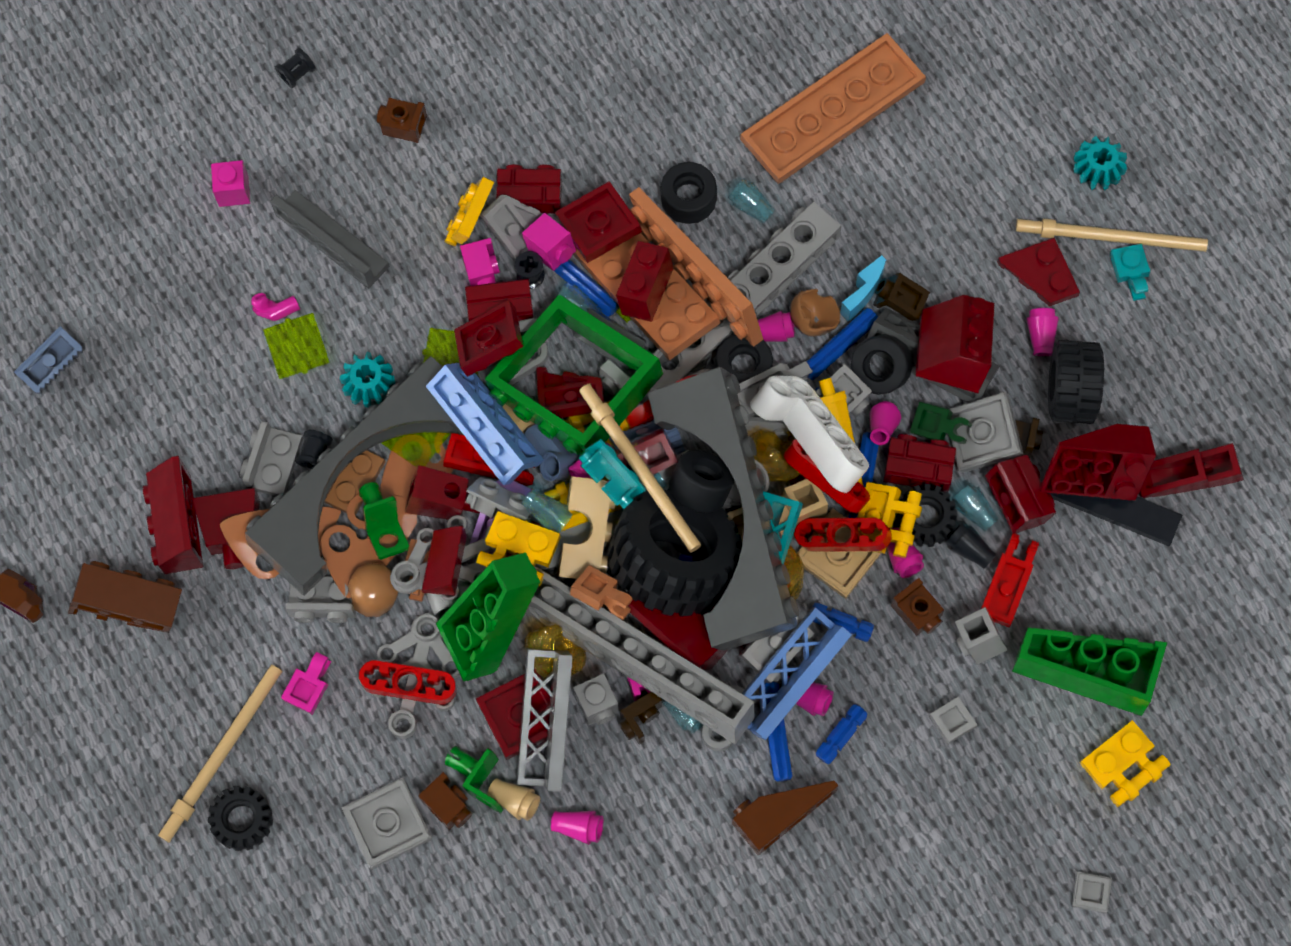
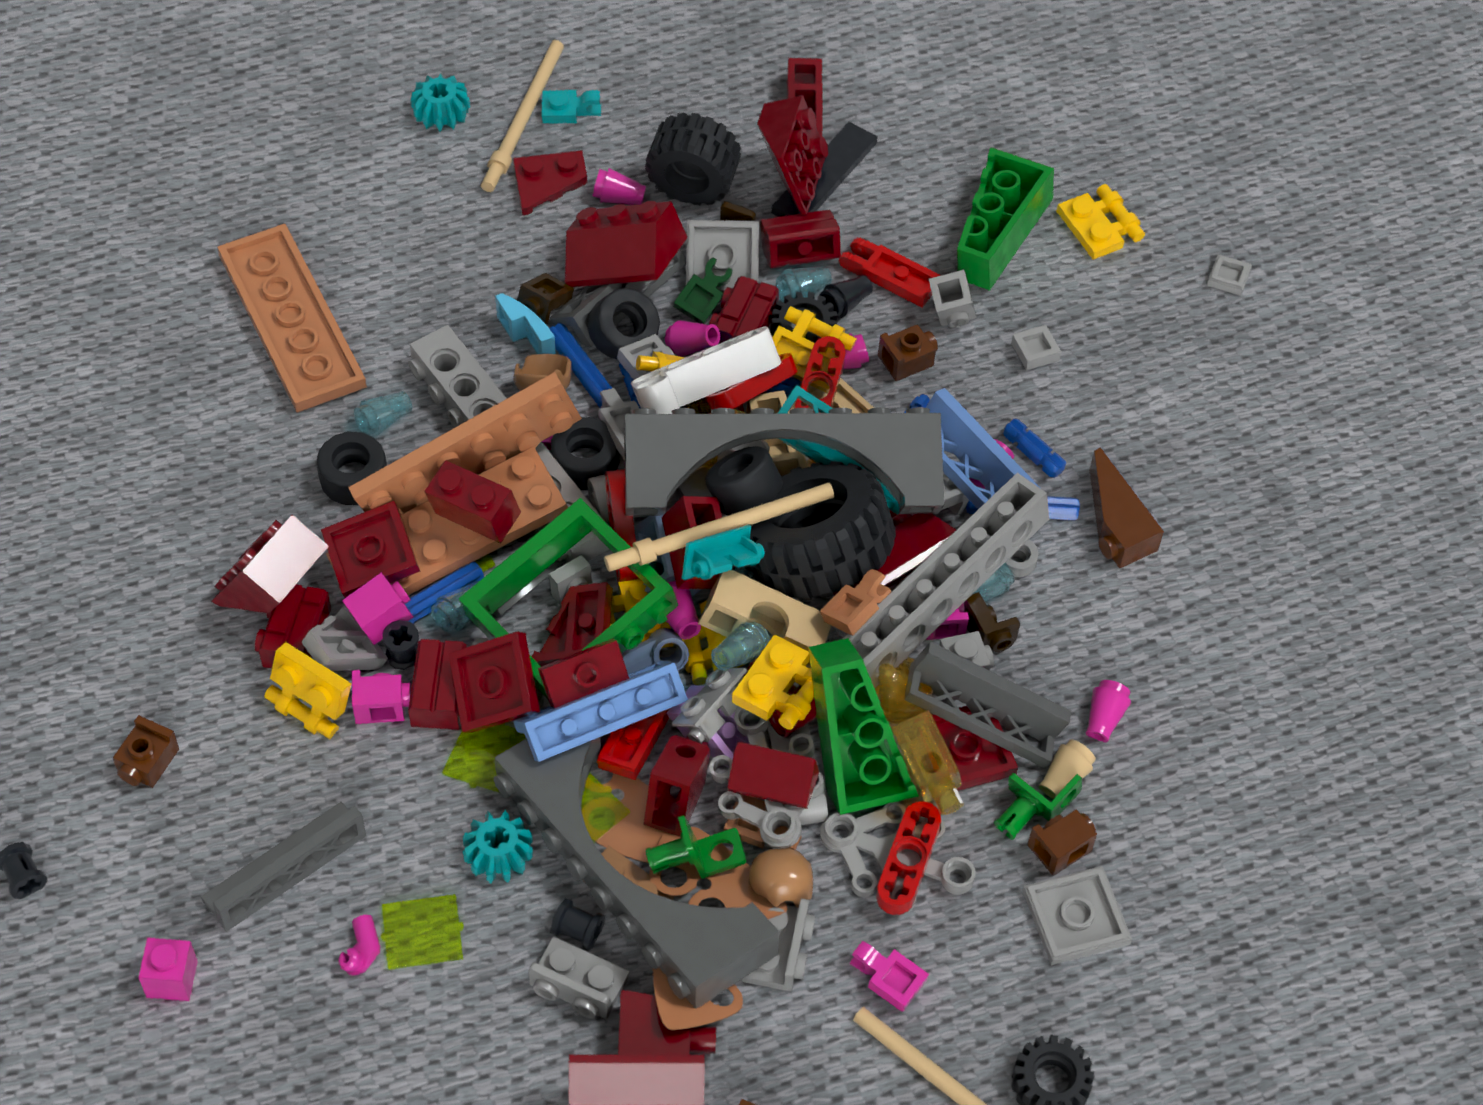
camera: 85 degrees left, 15 degrees down
(480, 679) = (927, 752): none -> clear yellow torso
(501, 398) = (583, 673): none -> dark red plate
(561, 155) = (270, 567): none -> slope

